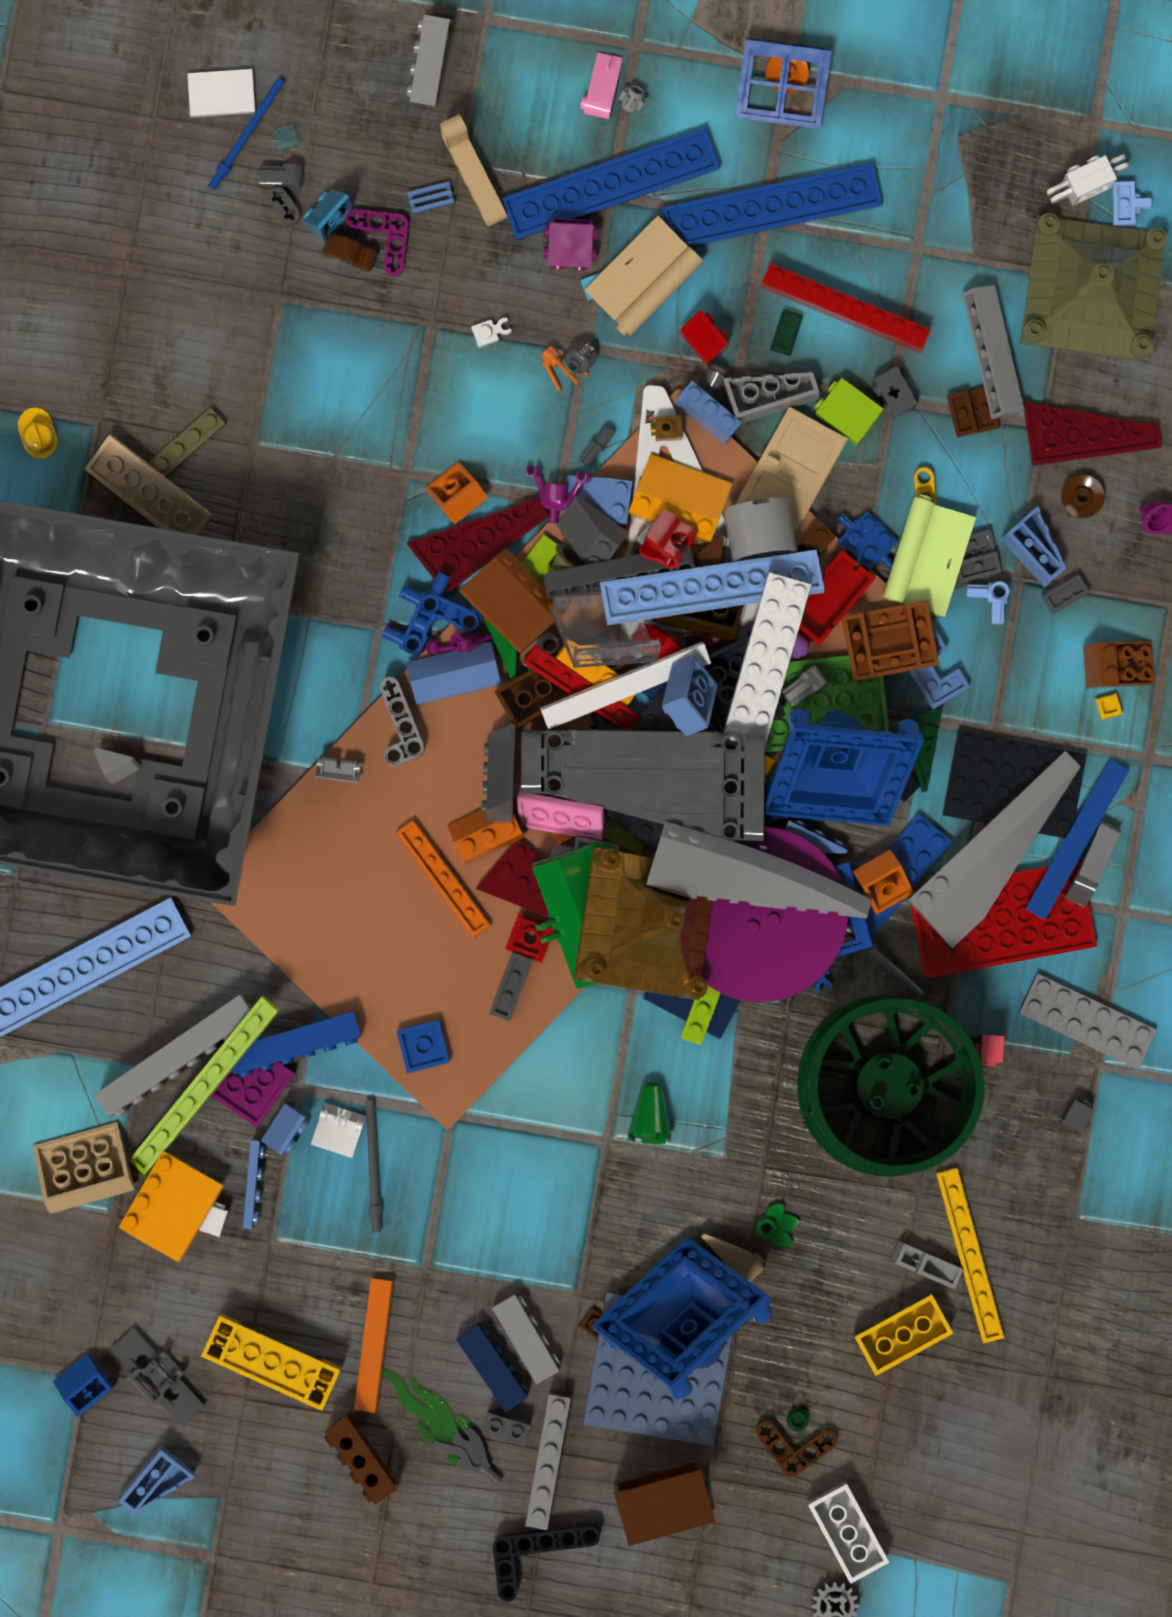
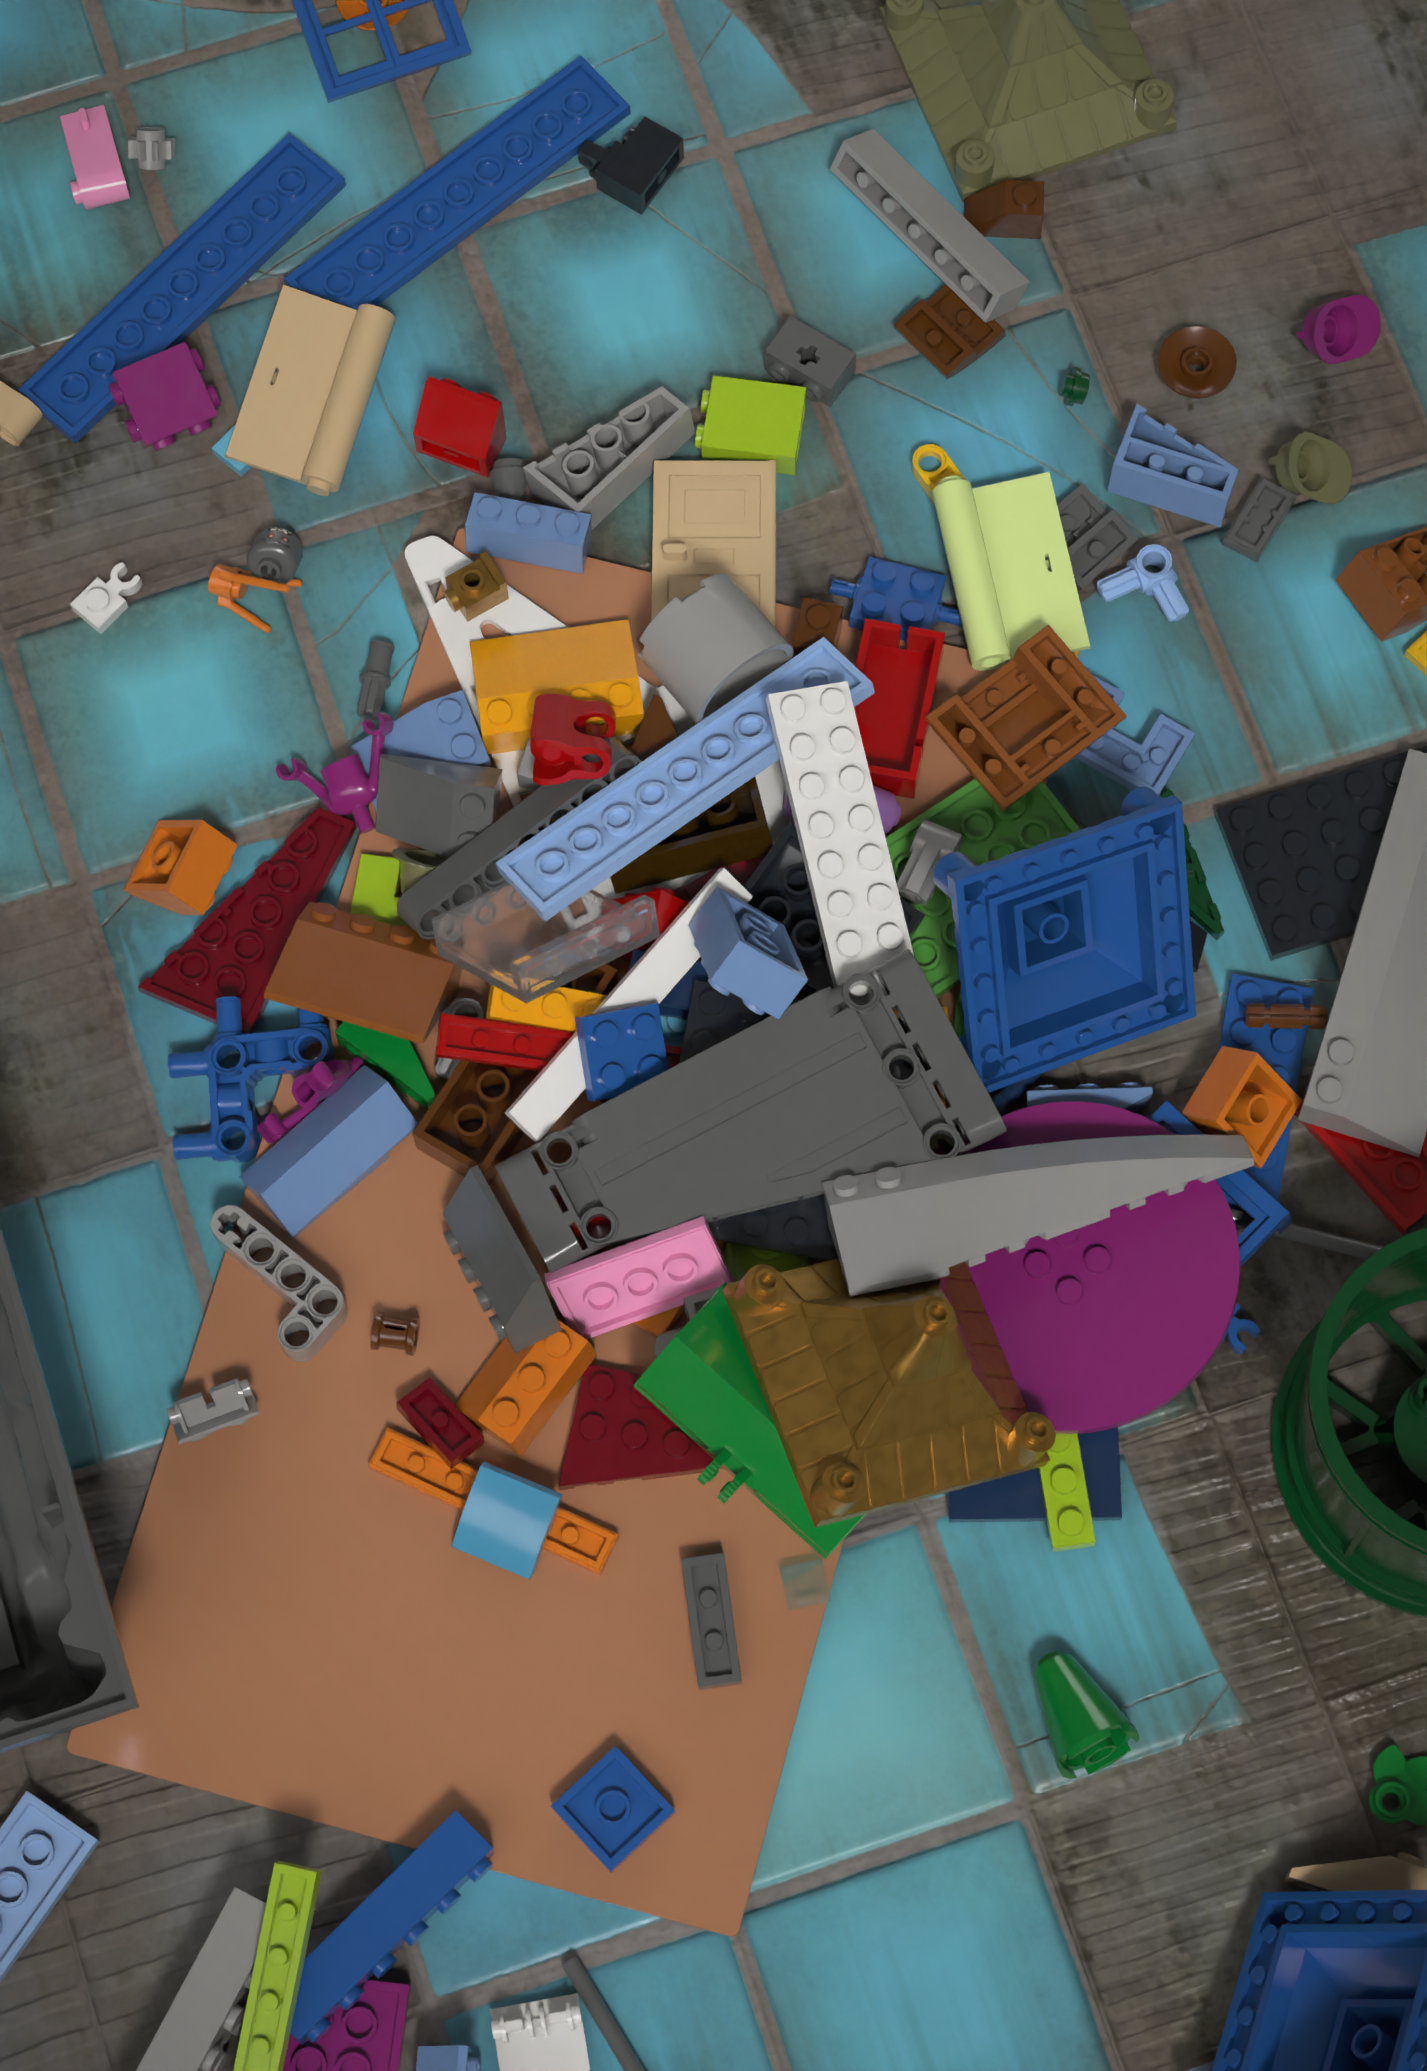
camera: 25 degrees left, 15 degrees down
(437, 830) = (440, 1423): none -> dark red plate
(439, 777) = (395, 1333): none -> reddish brown bush
(443, 892) = (506, 1520): none -> dark azure slope
(516, 940) = (683, 1541): red piece -> none
(562, 992) = (804, 1584): none -> clear light blue tile
(609, 707) = (620, 1049): none -> blue plate
(786, 332) = (586, 362): clear green tile -> none
(845, 308) = (659, 278): red brick -> none
(867, 241) = (637, 167): none -> black hinge
(929, 849) = (1286, 1016): none -> reddish brown axle
(1016, 476) = (1074, 386): none -> dark green plate
(1036, 363) = (1008, 209): none -> reddish brown slope
(1073, 435) = (1134, 281): dark red wing -> none
(1105, 584) = (1313, 468): none -> olive piece

